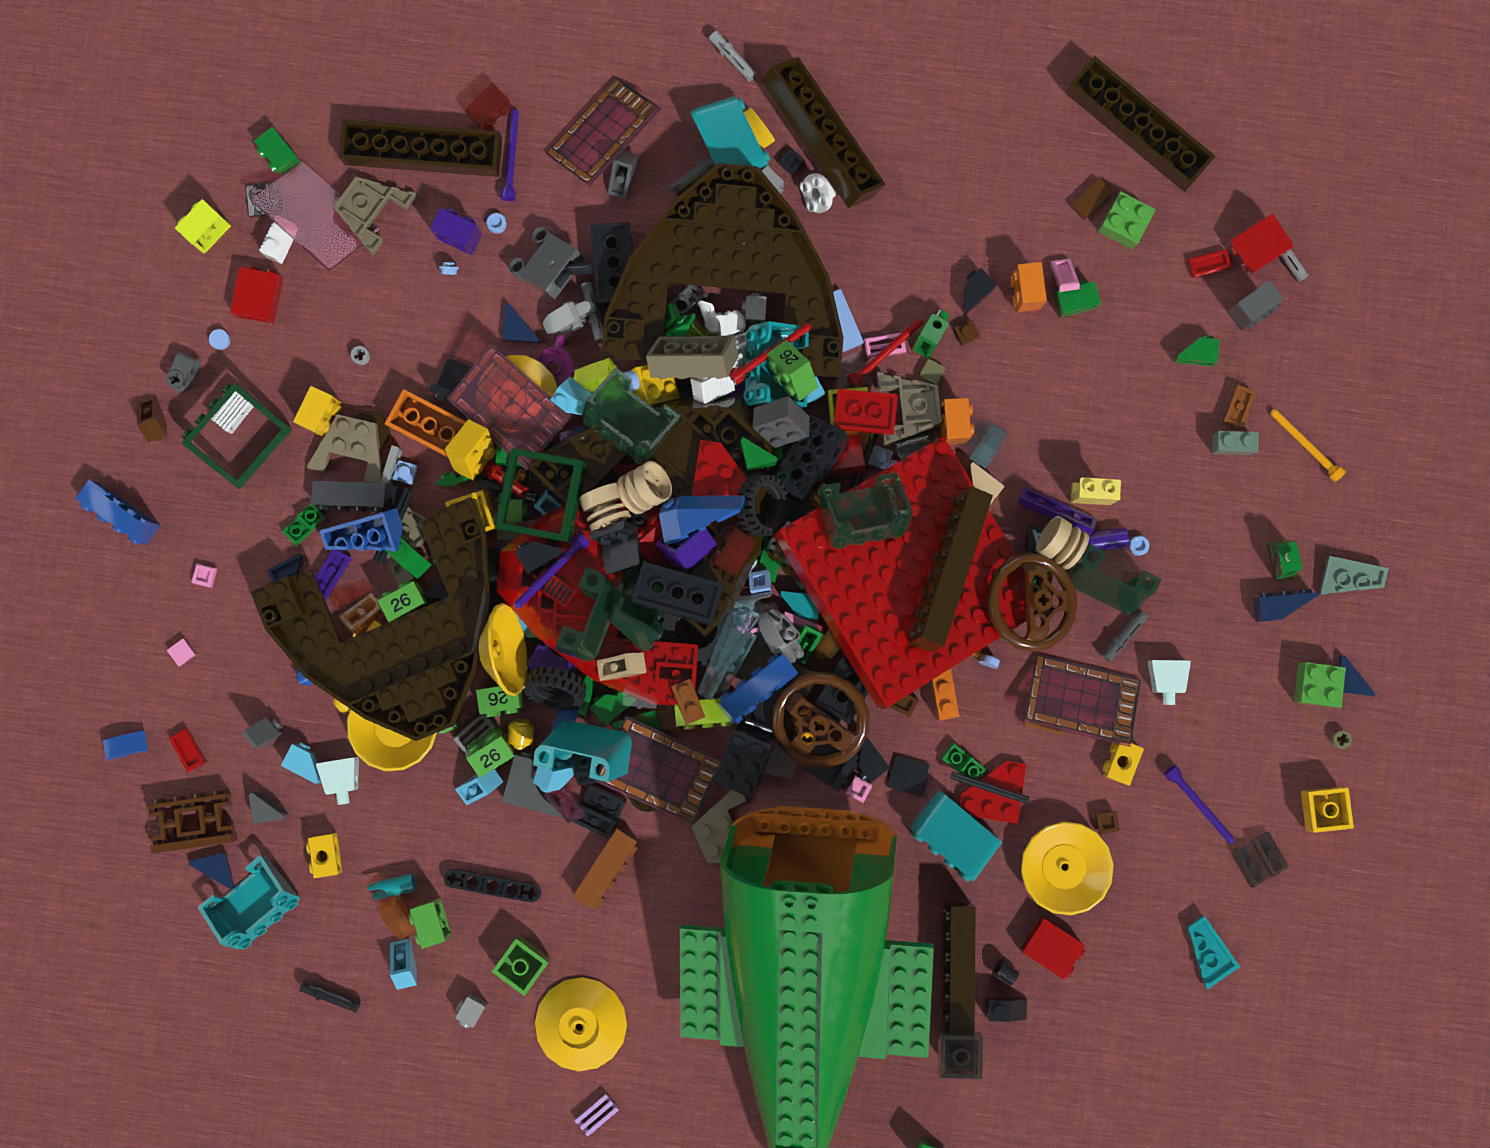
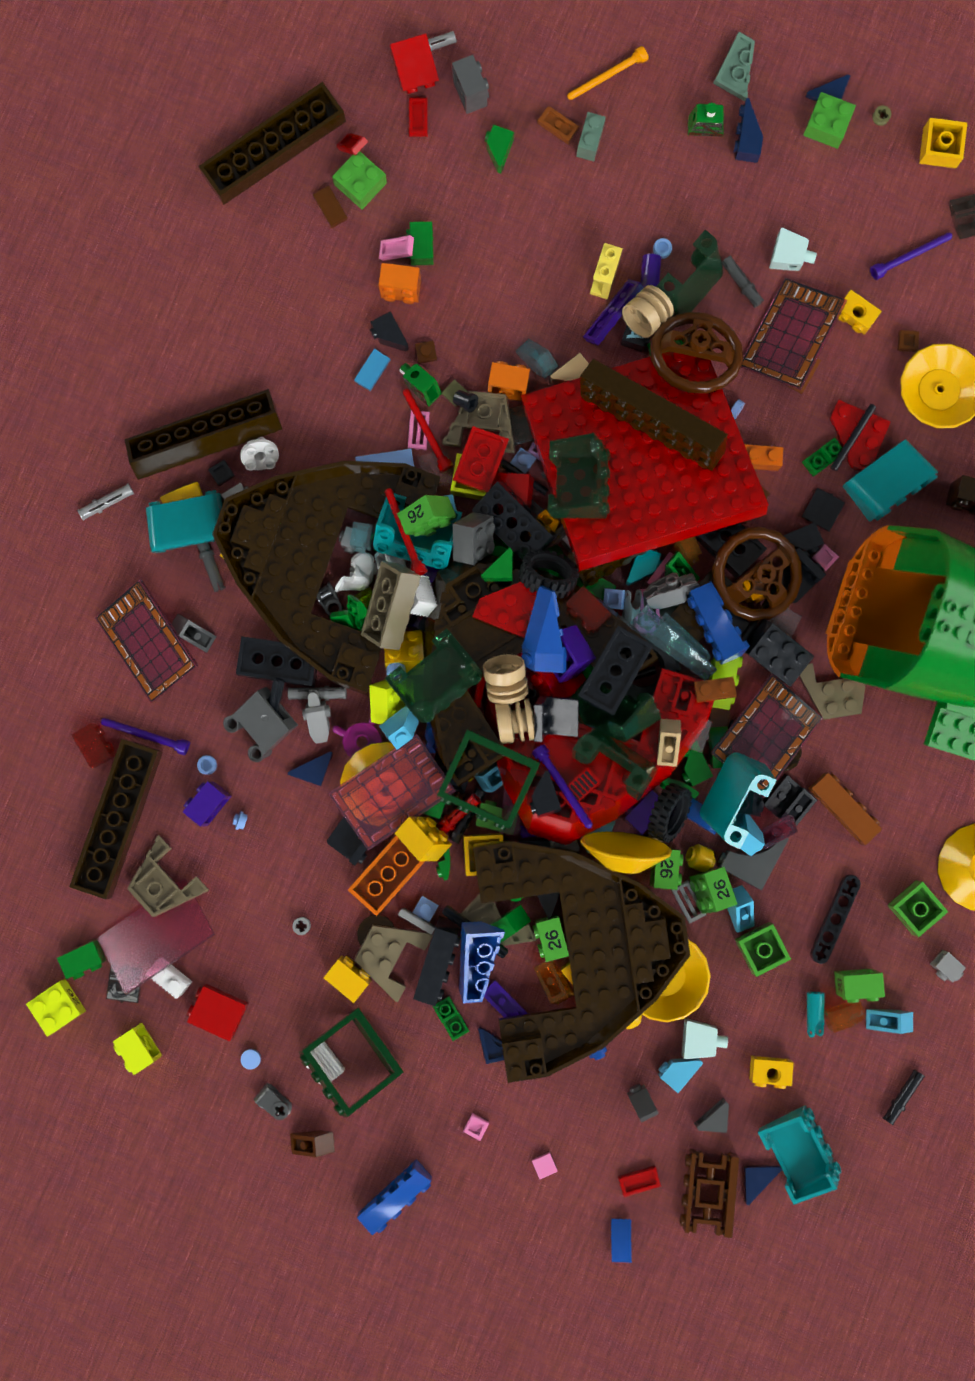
camera: 80 degrees left, 0 degrees up
(225, 139) = (56, 1007): none -> neon yellow brick
(443, 817) = (762, 949): none -> bright green brick
(757, 313) = (361, 537): none -> clear light blue brick
(924, 385) = (466, 400): none -> black bush
(934, 283) = (372, 370): none -> dark azure tile
(1161, 203) = (352, 143): none -> red tile

